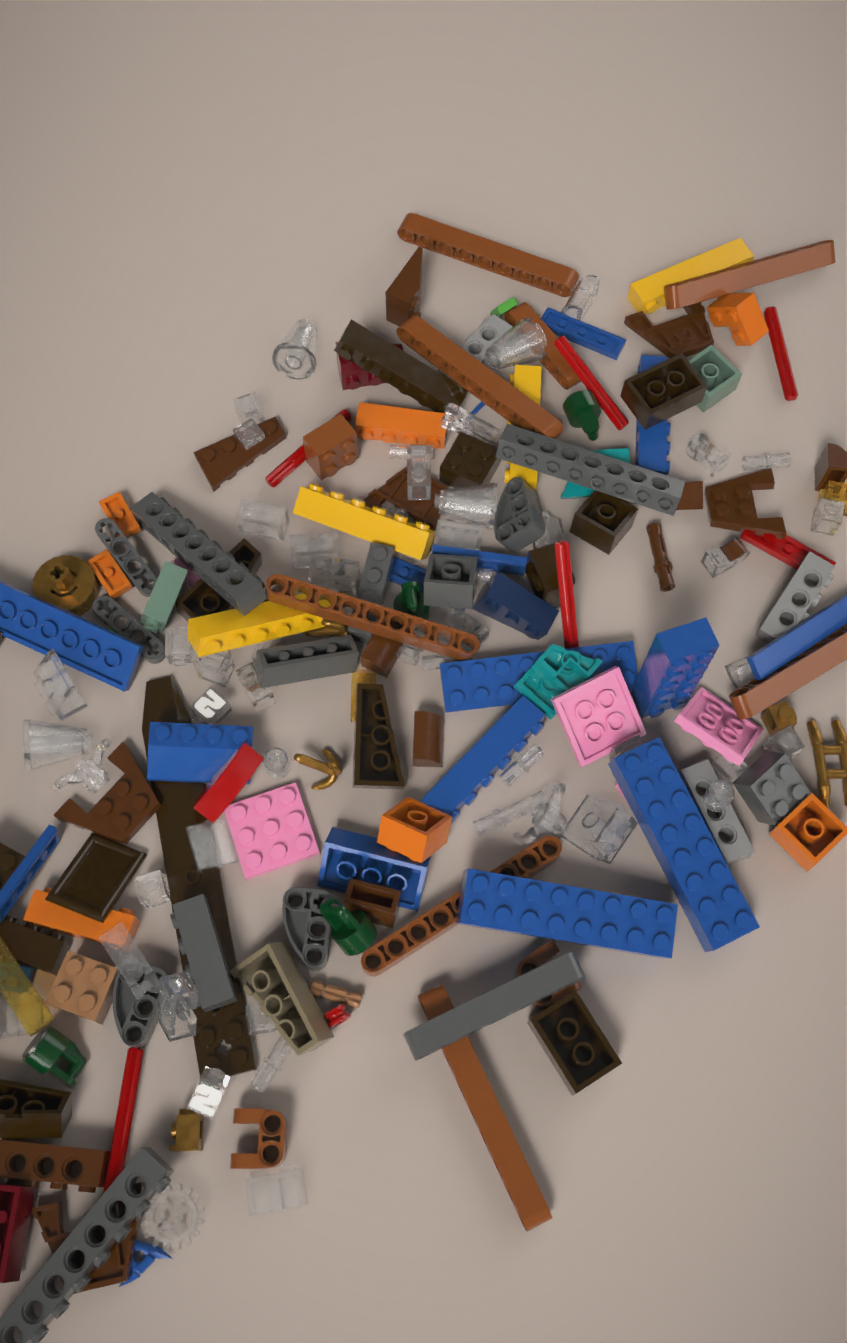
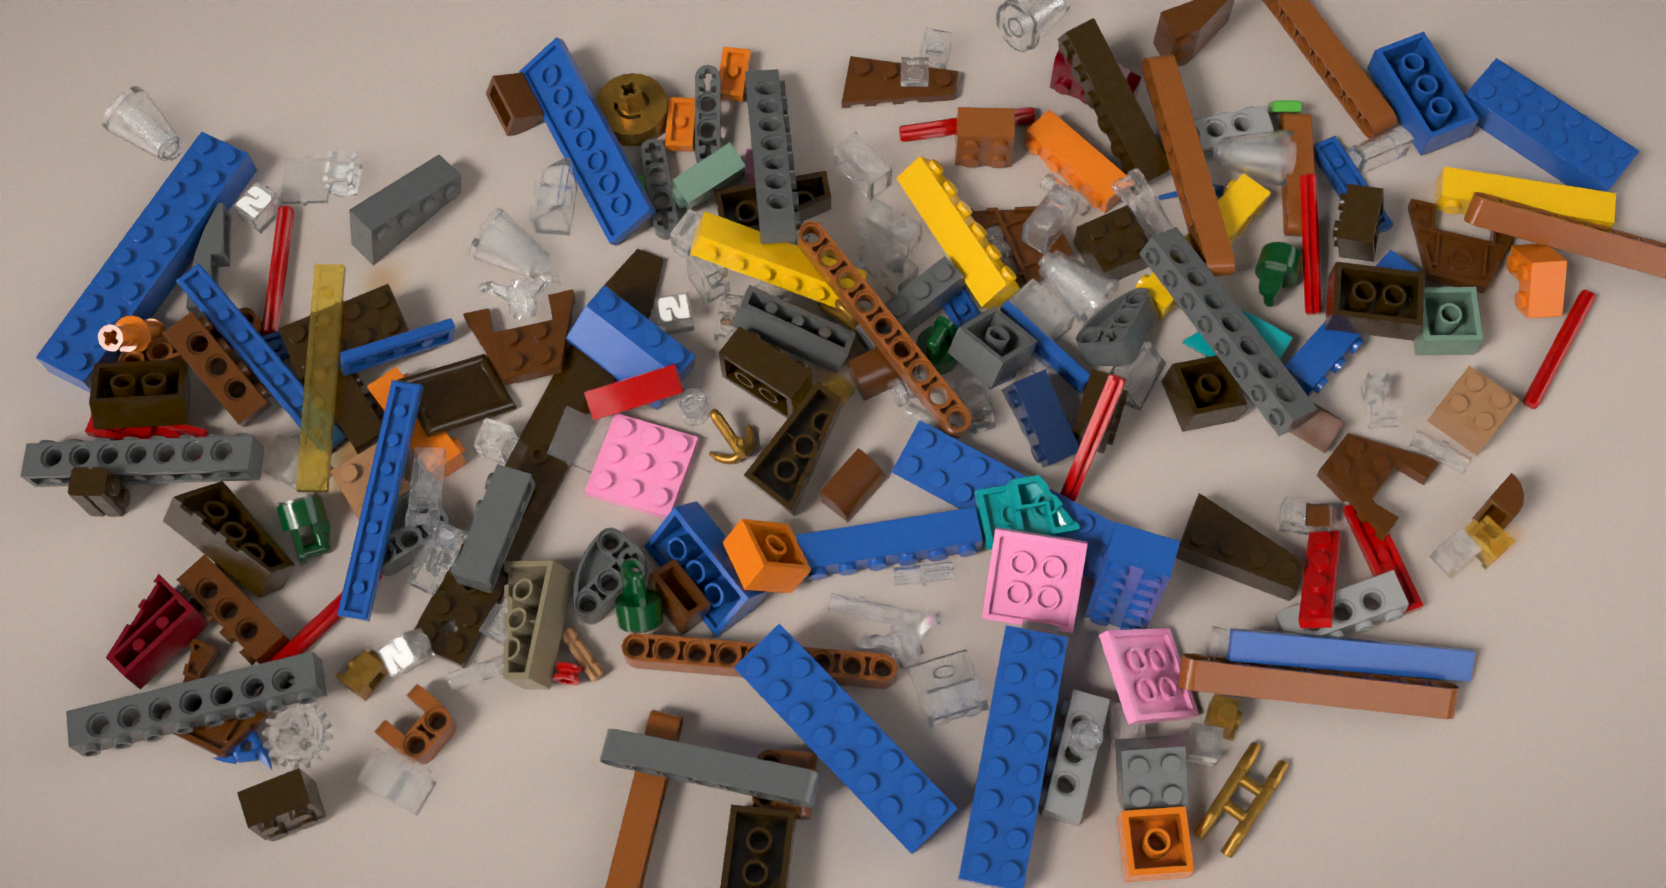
camera: 40 degrees right, 0 degrees up
(104, 996) = (380, 501): none -> blue tile
(205, 1279) = (282, 805): none -> dark brown brick
(311, 704) = (765, 371): none -> dark brown brick
(580, 246) = (1422, 93): none -> blue brick
(611, 349) = (1360, 222): none -> dark brown brick
(662, 564) = (1232, 481): reddish brown pin -> none
(667, 225) = (1548, 130): none -> blue brick
(718, 603) = (1237, 551): none -> dark brown wedge
(766, 422) = (1473, 410): none -> medium nougat brick
(770, 589) = (1320, 580): none -> red plate

